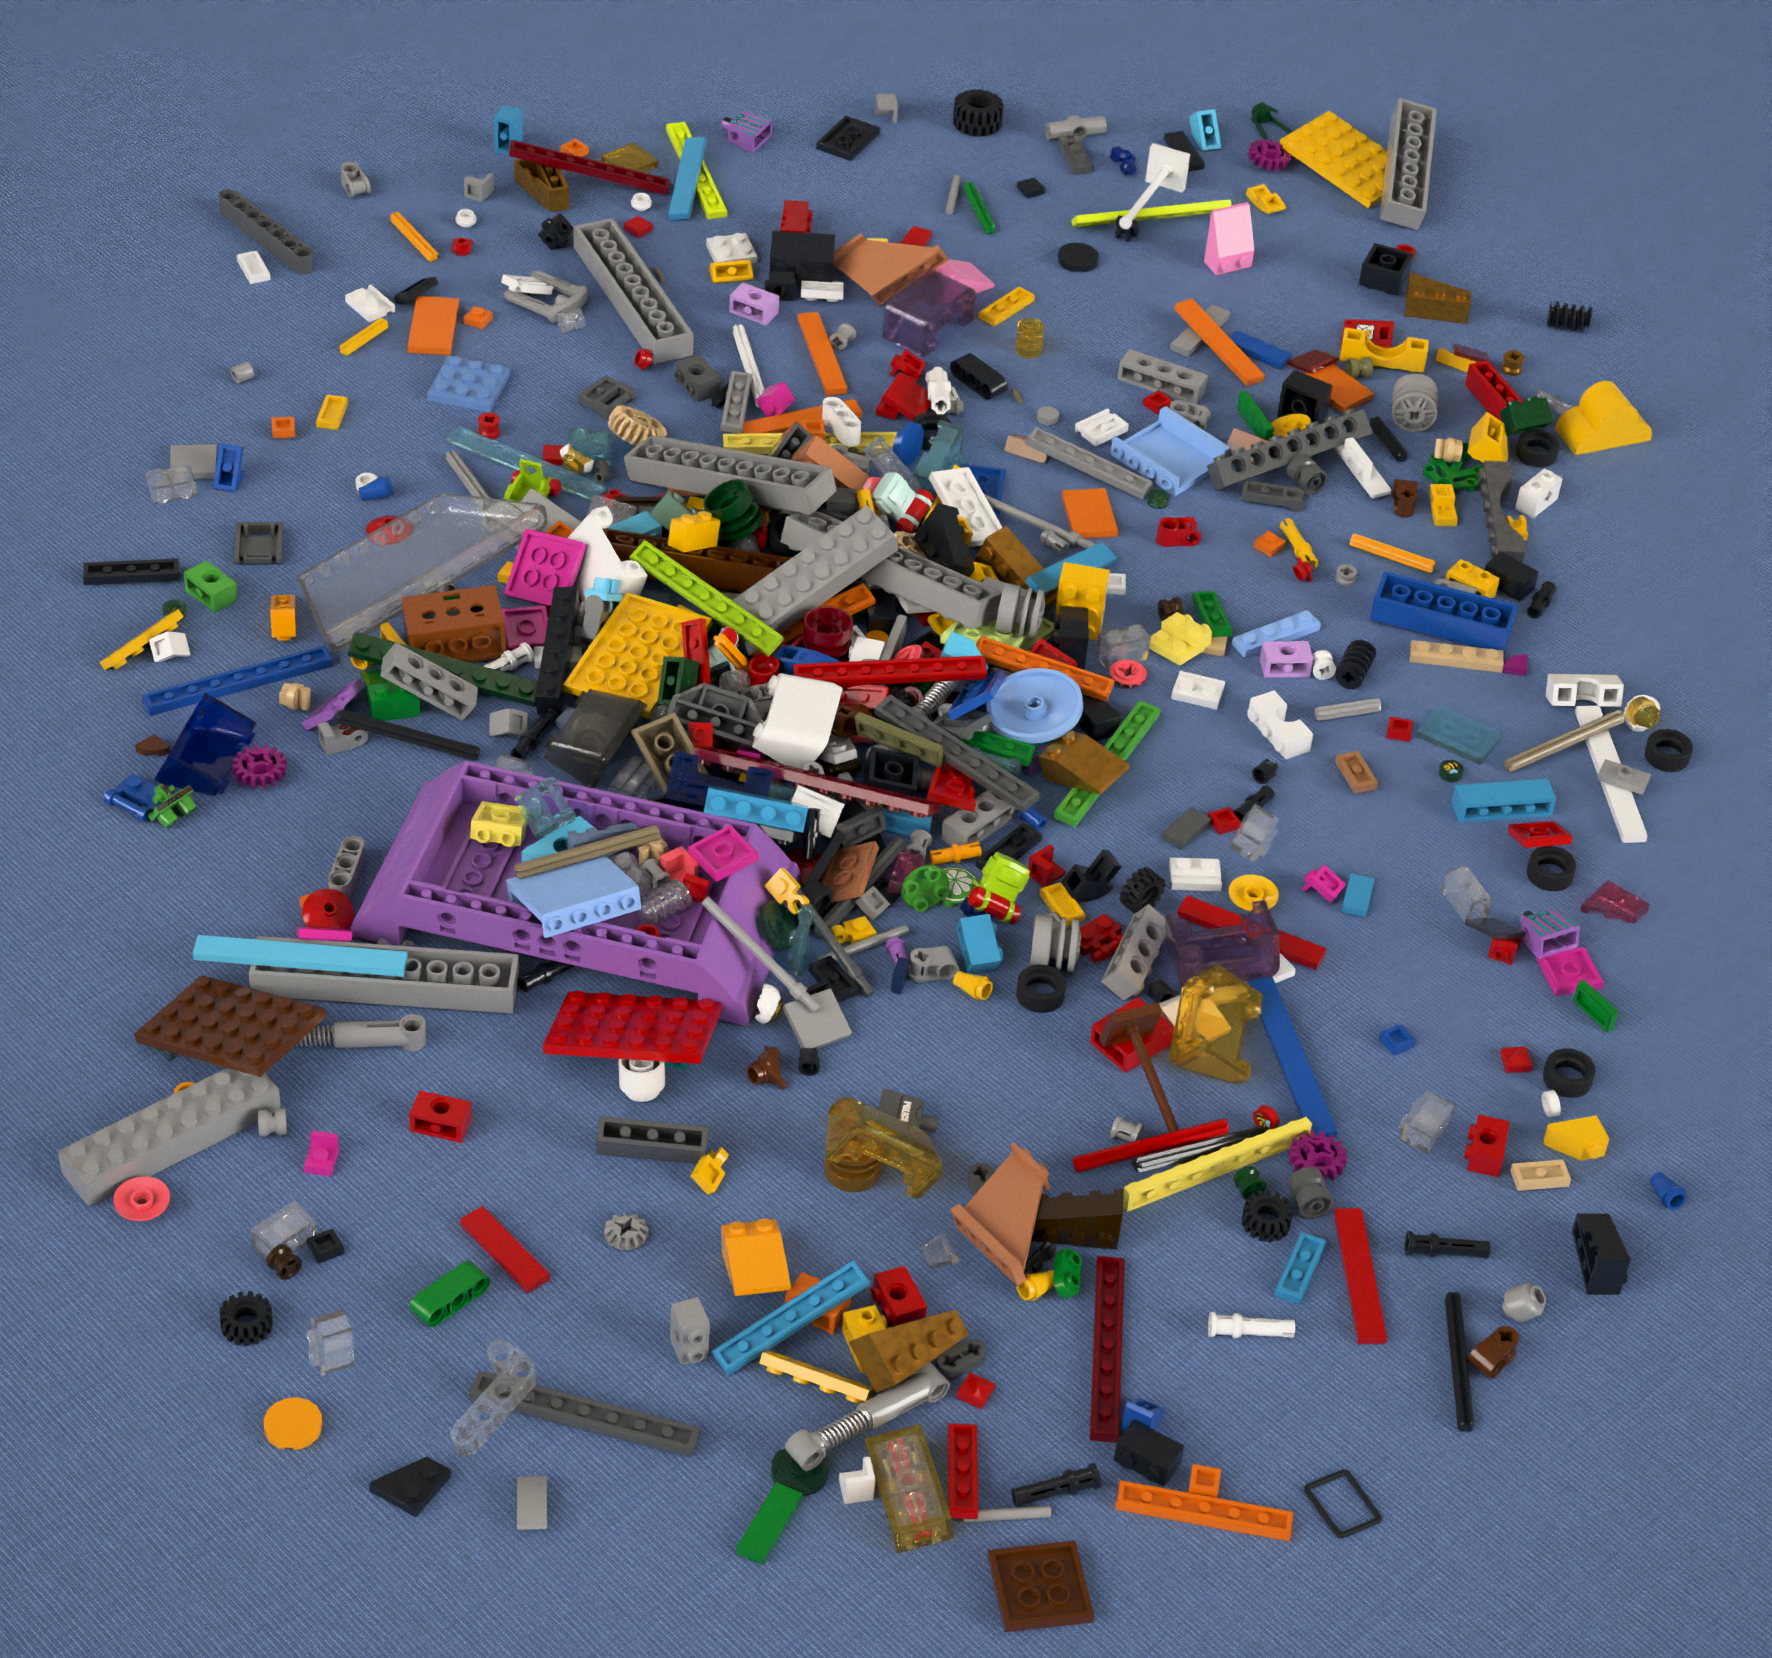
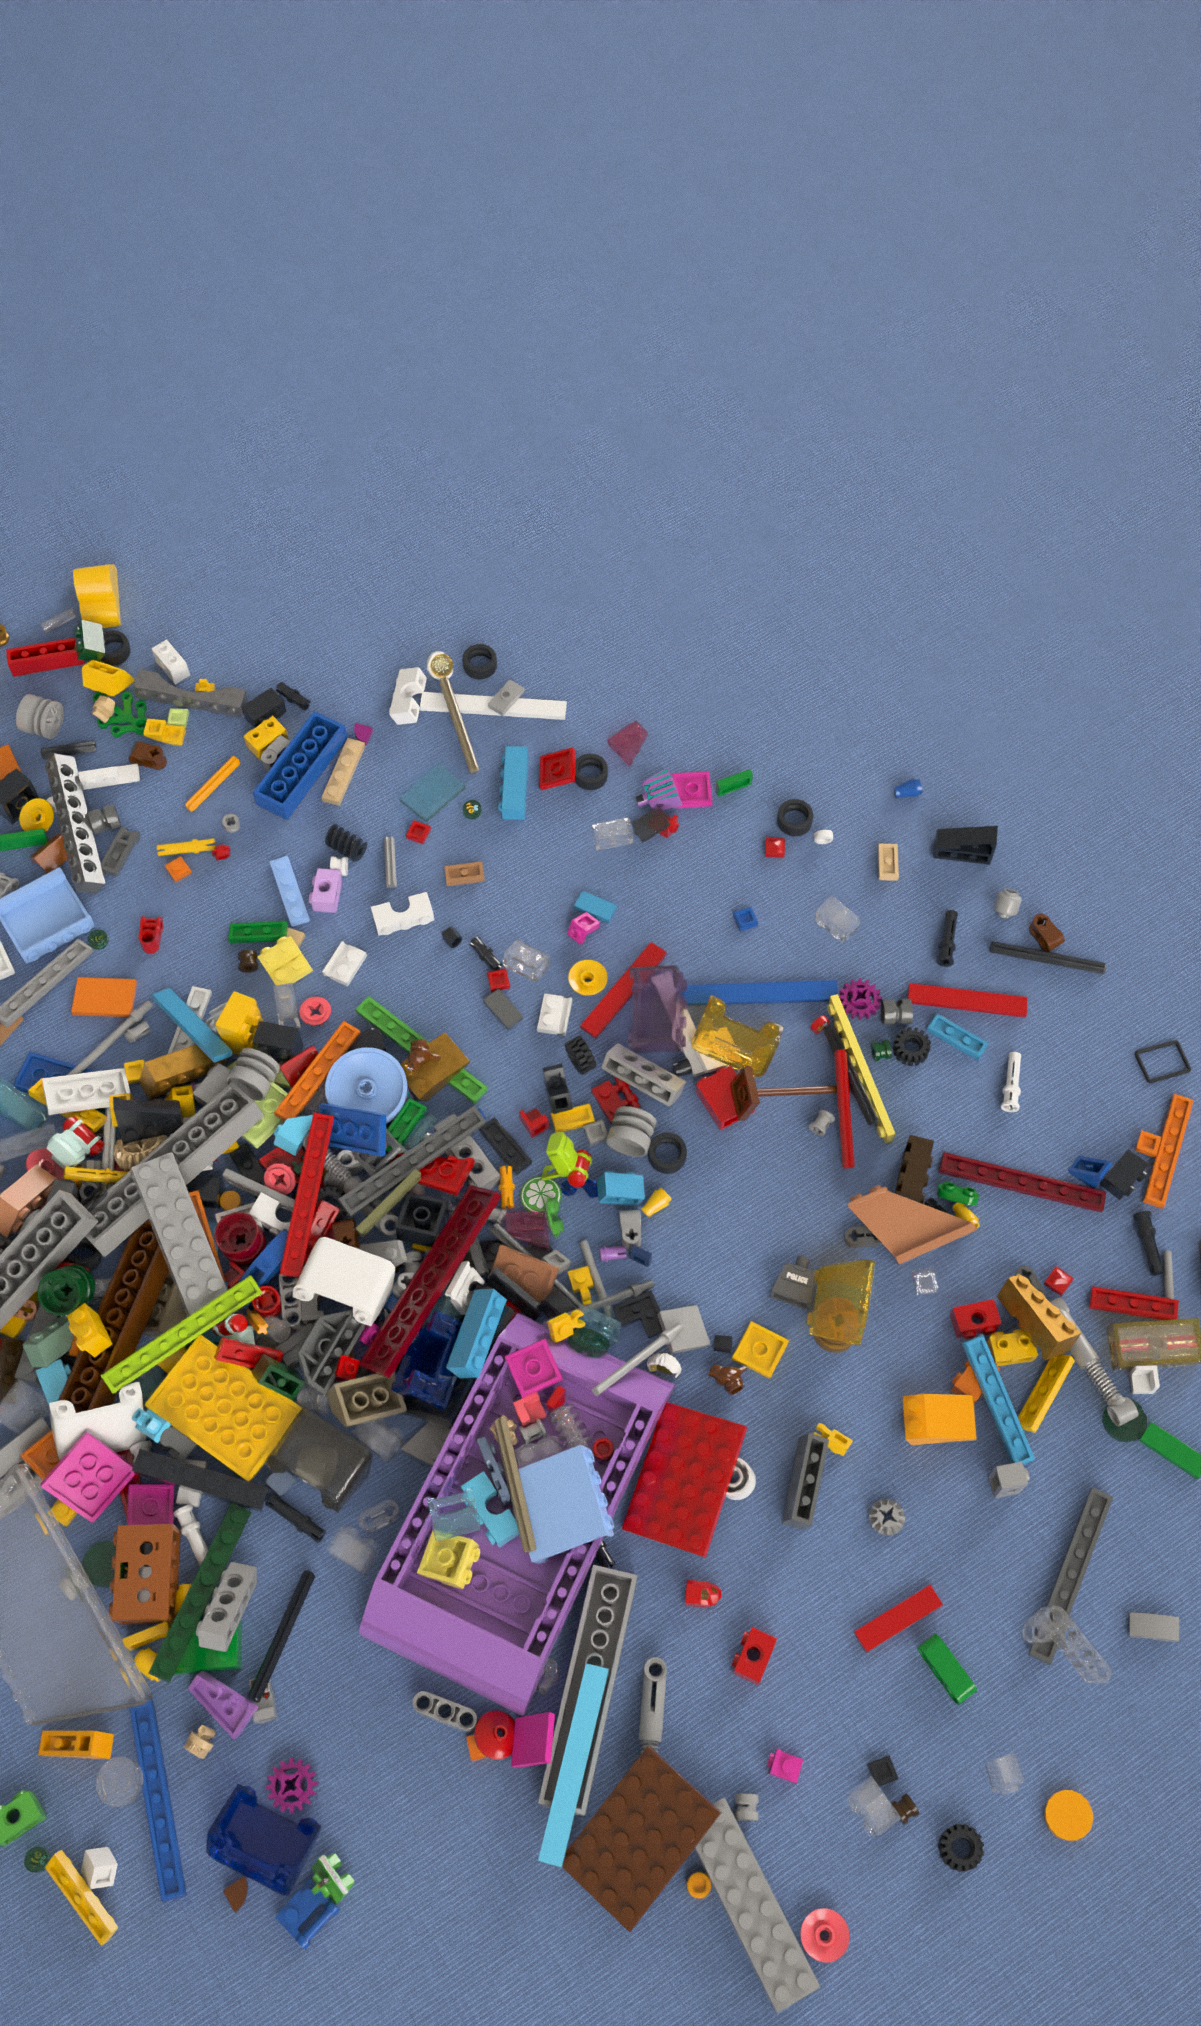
camera: 75 degrees left, 20 degrees up
(251, 648) = (119, 1781): none -> clear tile
(412, 1485) = (1131, 1720): black wing -> none
(504, 1064) = (701, 1594): none -> red rock
(508, 722) = (278, 1540): light grey panel -> none
(809, 1098) = (760, 1349): none -> yellow tile
(1086, 736) = (420, 1055): none -> reddish brown animal
(1469, 515) = (178, 717): none -> yellowish green tile
(1487, 1145) = (854, 878): red brick -> none
(1578, 1138) = (858, 827): yellow slope -> none

